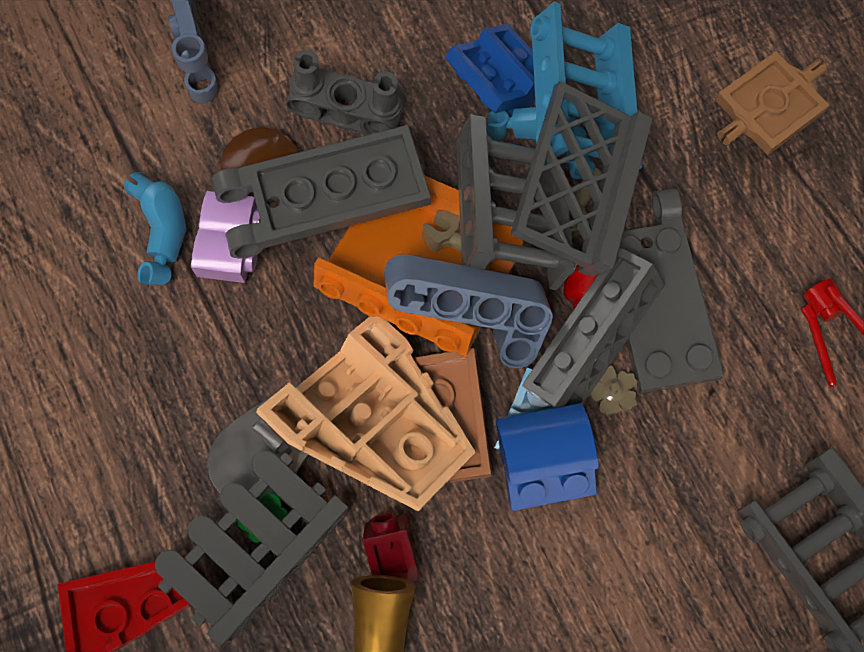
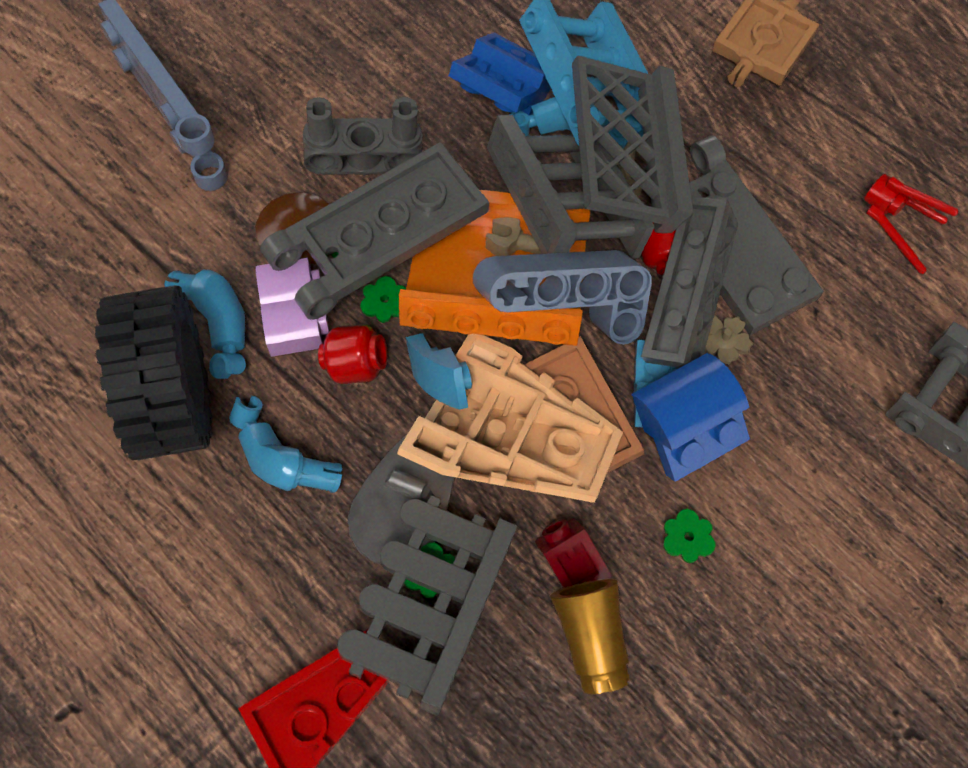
camera: 20 degrees left, 5 degrees down
(78, 268) = (153, 372): none -> black tyre
(163, 378) = (276, 463): none -> dark azure arm
(265, 299) = (353, 354): none -> red head
(307, 248) = (383, 290): none -> green plant
(330, 343) = (439, 372): none -> dark azure slope
(509, 553) = (688, 524): none -> green plant

